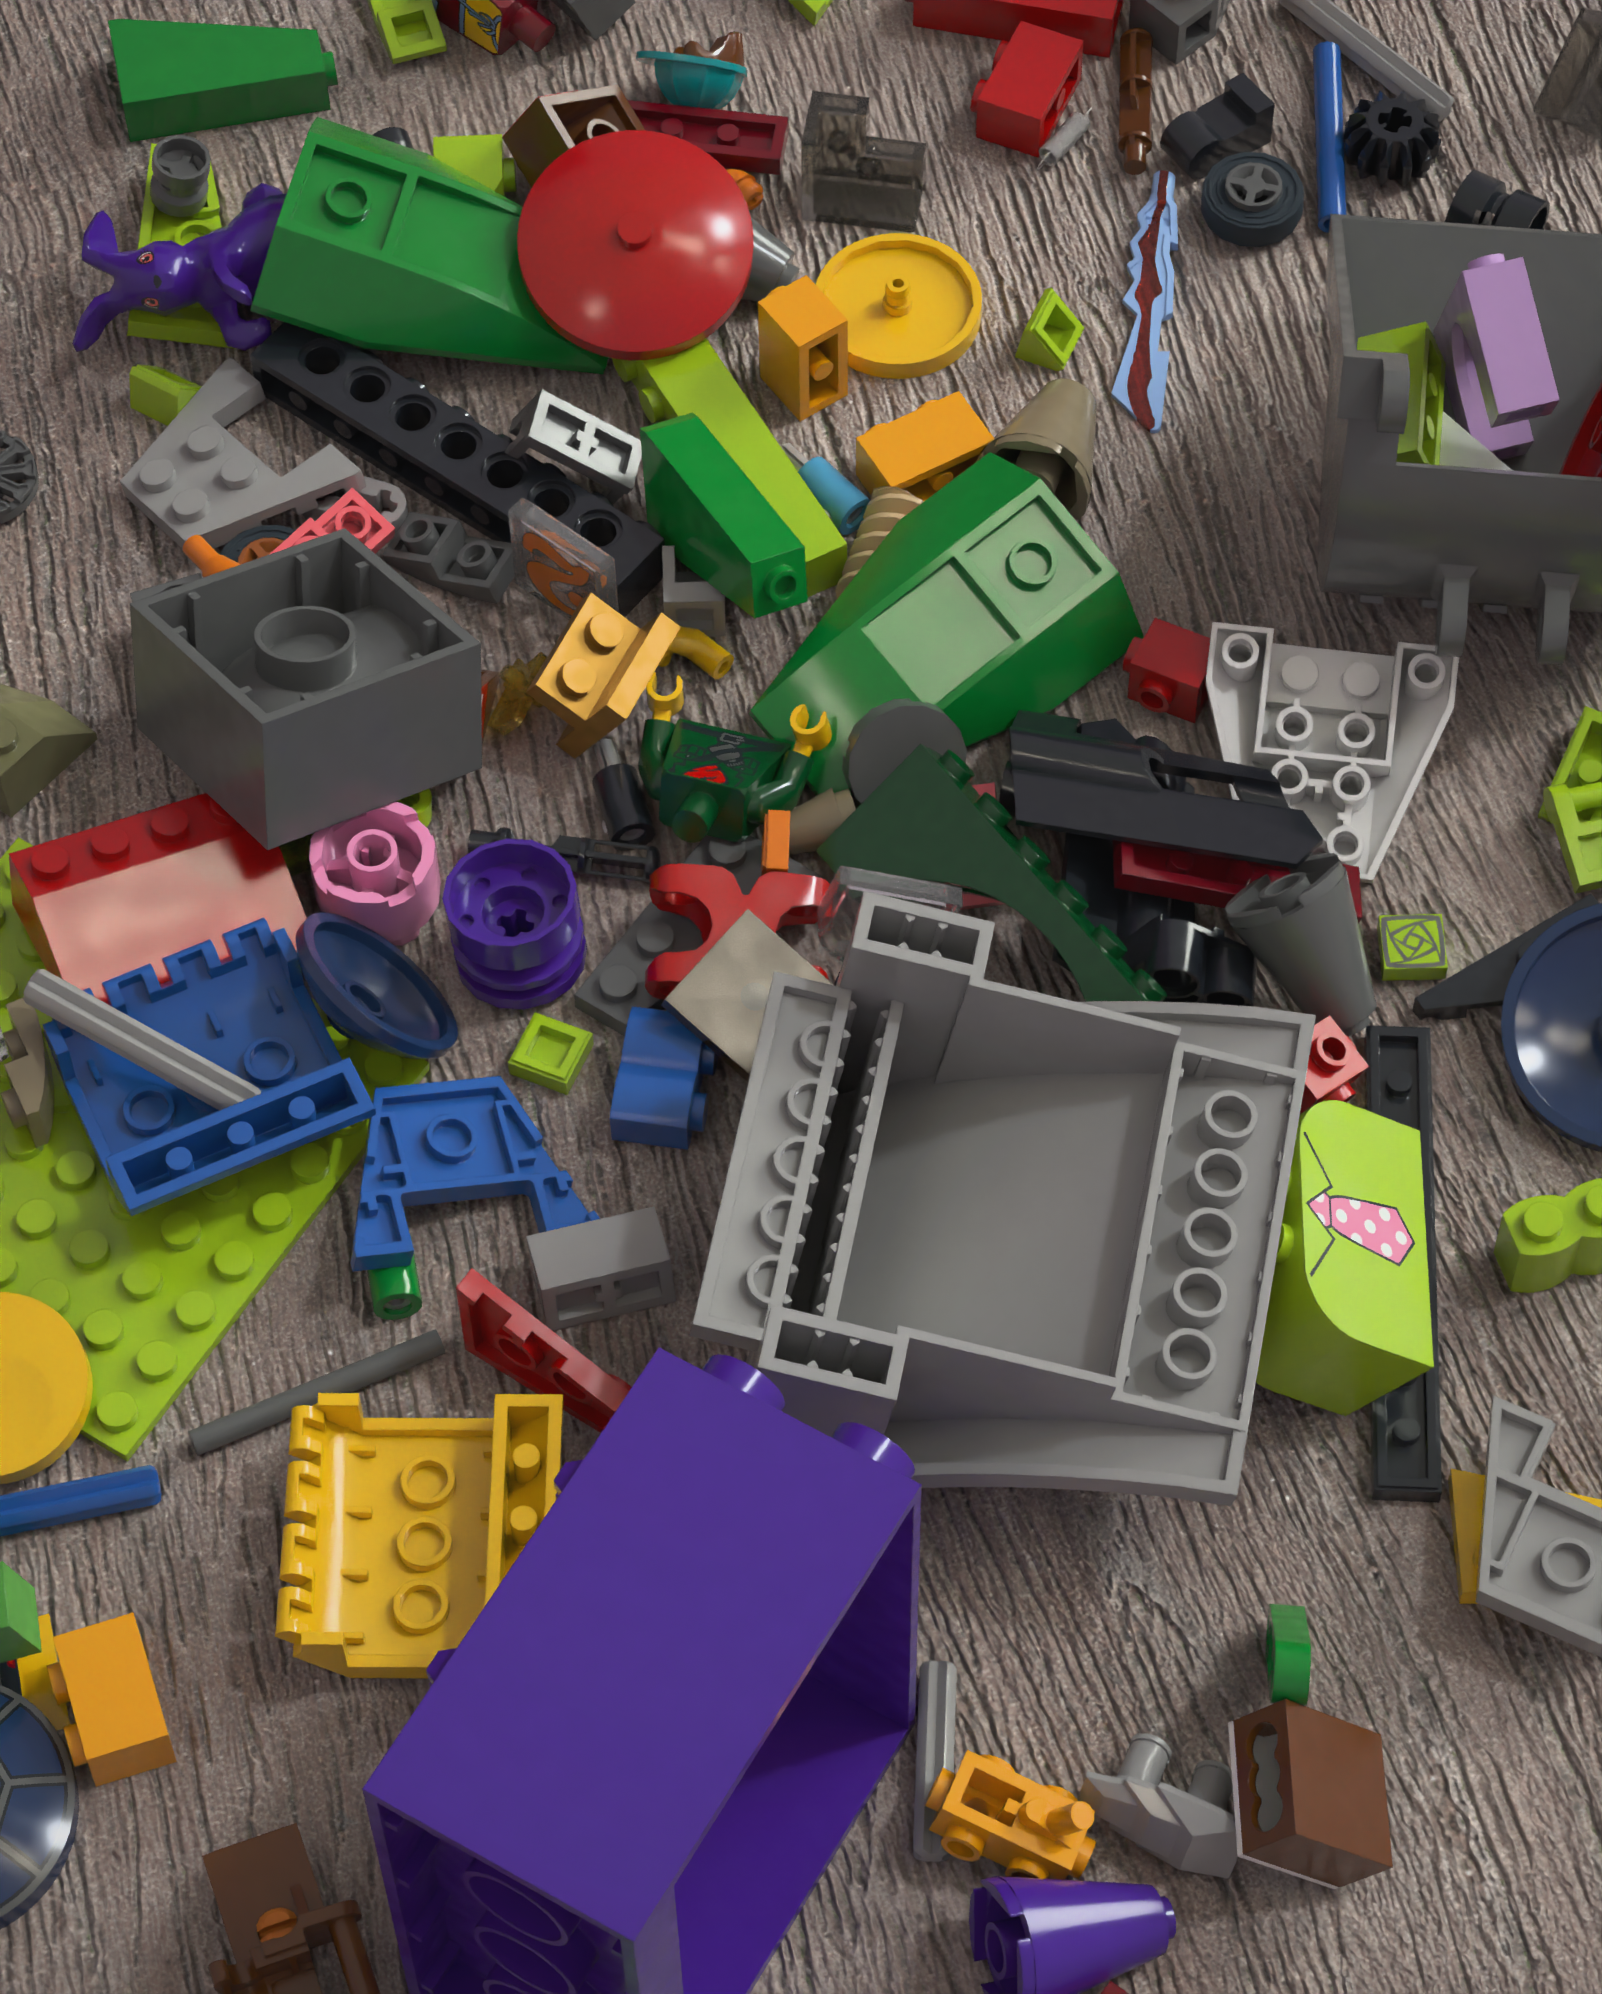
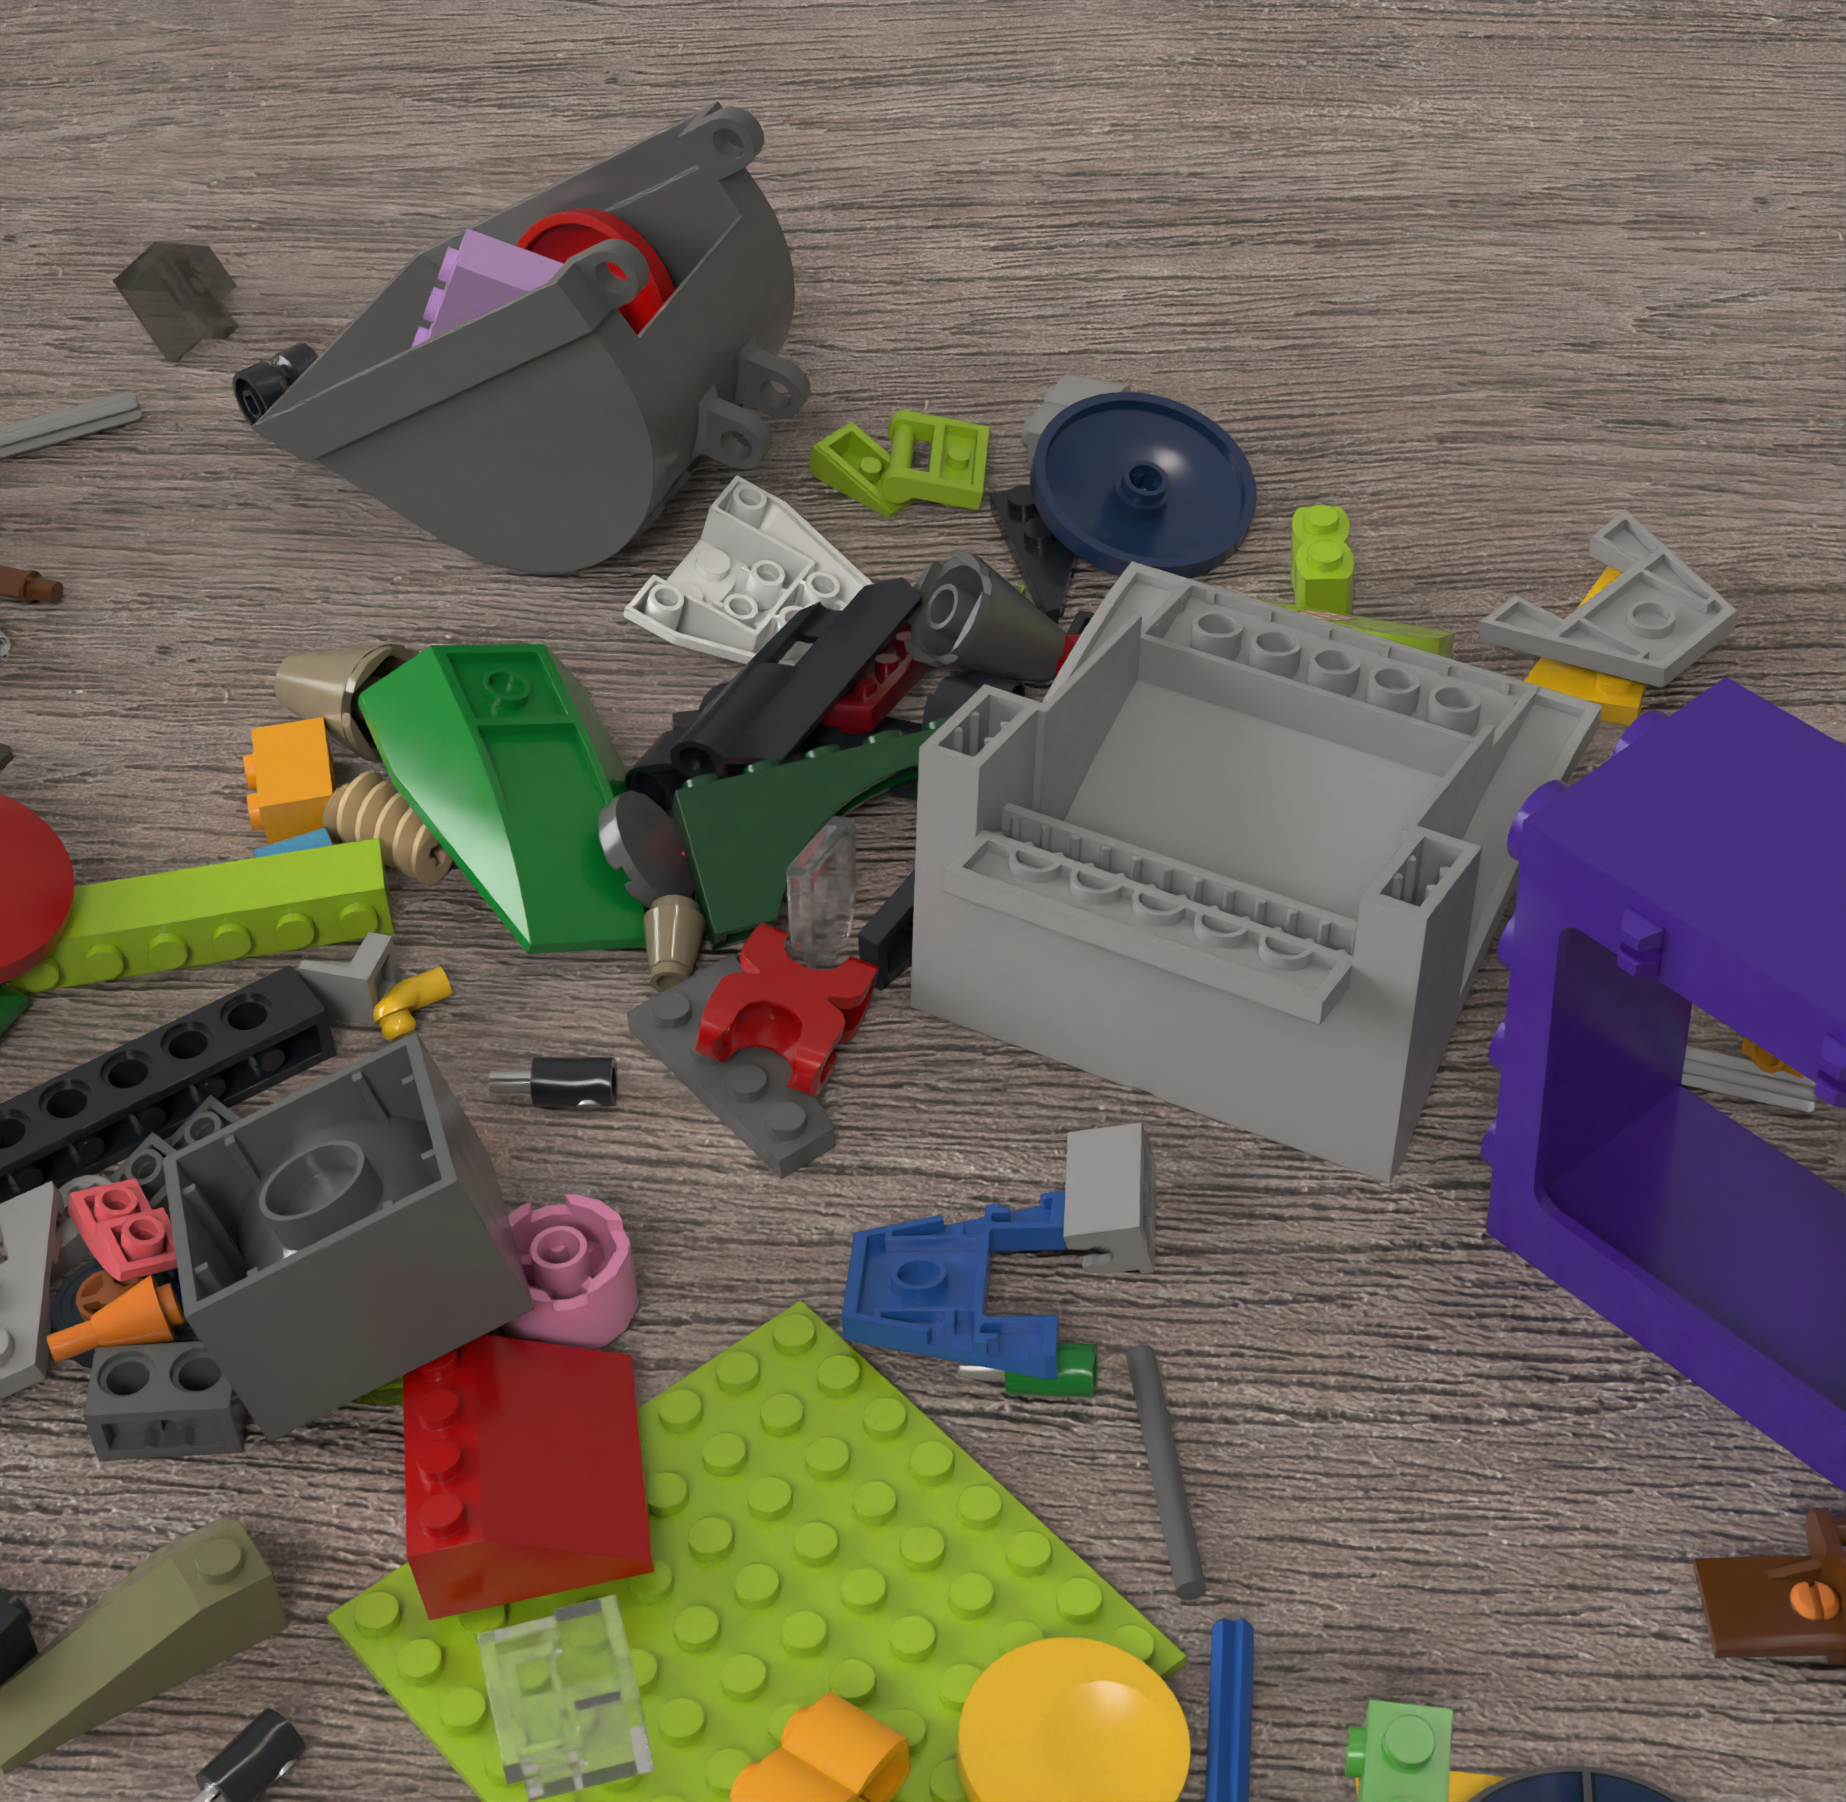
camera: 70 degrees left, 15 degrees down
(29, 1074) = (709, 1626): dark tan slope -> none
(112, 1700) = (1509, 1703): light orange brick -> none
(136, 1041) = (720, 1478): light grey axle -> none
(241, 1015) = (772, 1458): blue slope -> none
(373, 989) = (727, 1302): dark blue dish -> none
(406, 1526) = (1394, 1366): yellow slope -> none
(515, 923) = (692, 1166): dark purple wheel -> none
(533, 1354) = (1210, 1251): red wing -> none
(550, 1053) = (833, 1201): lime tile -> none
(557, 561) = (281, 1042): clear tile -> none
(577, 442) = (131, 1003): hinge -> none
(581, 853) = (607, 1135): black piece -> none
(599, 671) = (455, 1017): bracket -> none
(660, 1082) = (910, 1111): blue brick -> none
(718, 777) = (591, 989): dark green torso -> none
(719, 518) = (312, 898): green slope -> none
(730, 987) = (876, 998): tile -> none
(775, 842) = (705, 952): orange tile -> none
(803, 347) = (124, 816): light orange brick -> none
(905, 303) = (100, 777): yellow piece -> none
(1050, 333) = (201, 686): lime slope -> none
(1144, 369) = (201, 615): light blue sword -> none
(1168, 670) = (634, 675): red brick -> none
(1220, 128) = (59, 523): black leg -> none
(1246, 179) = (150, 527): black wheel -> none
(1329, 132) = (112, 474): blue piece -> none
(1392, 138) = (149, 431): black gear -> none

